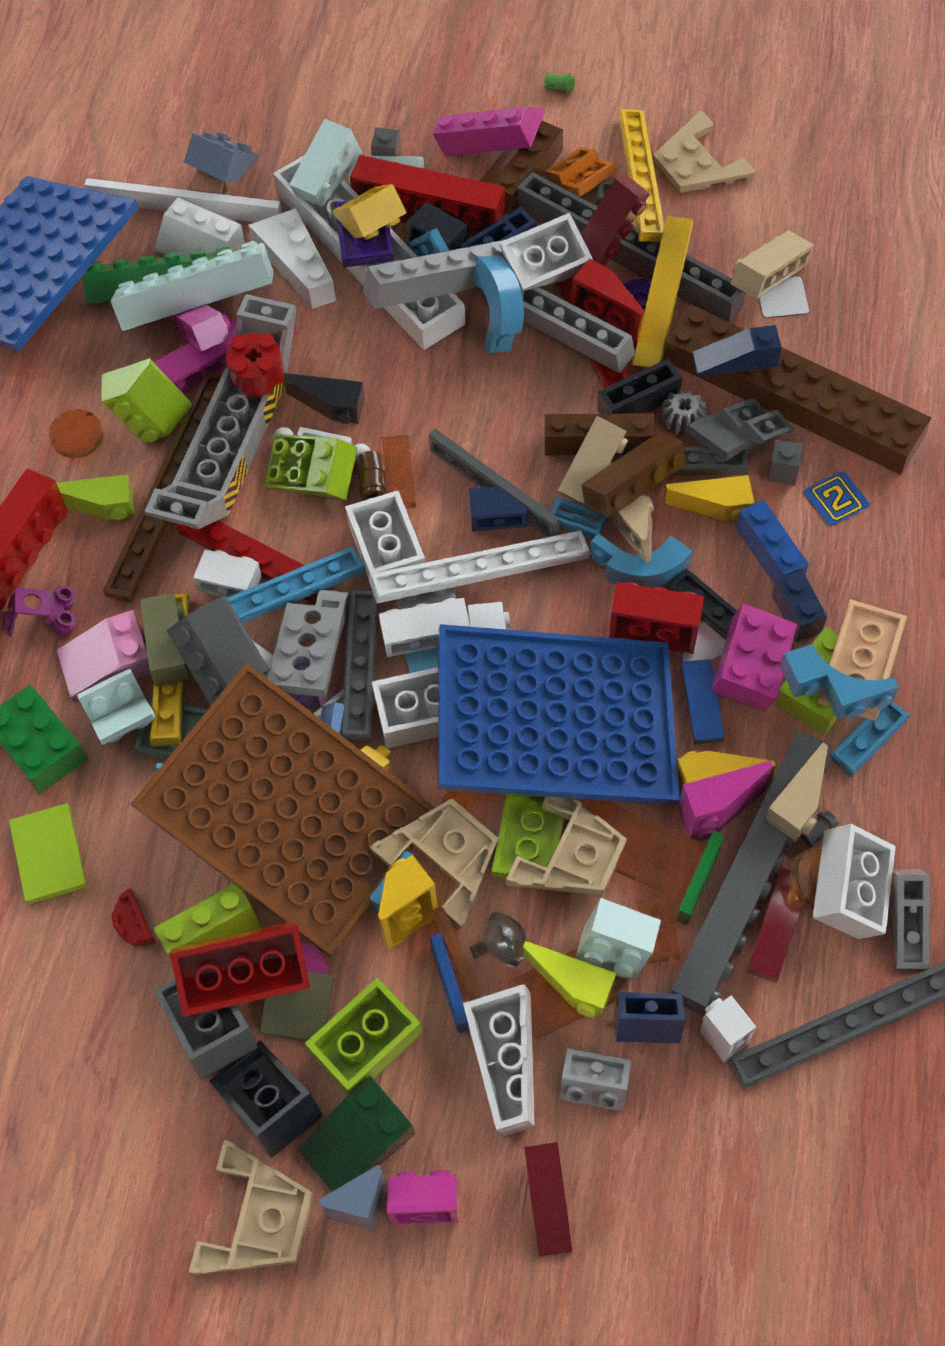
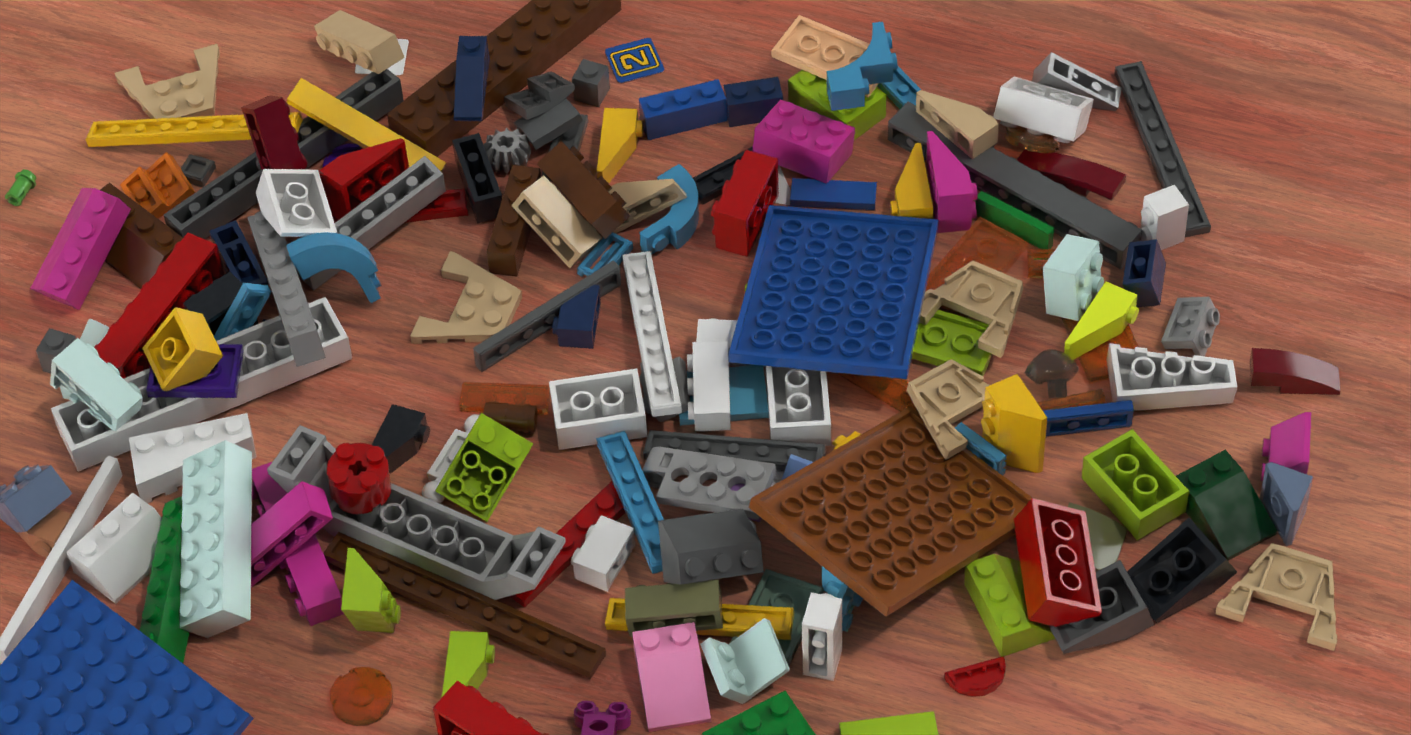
camera: 80 degrees left, 10 degrees down
(130, 760) = (822, 636): none -> white brick
(499, 434) = (481, 311): none -> tan wing

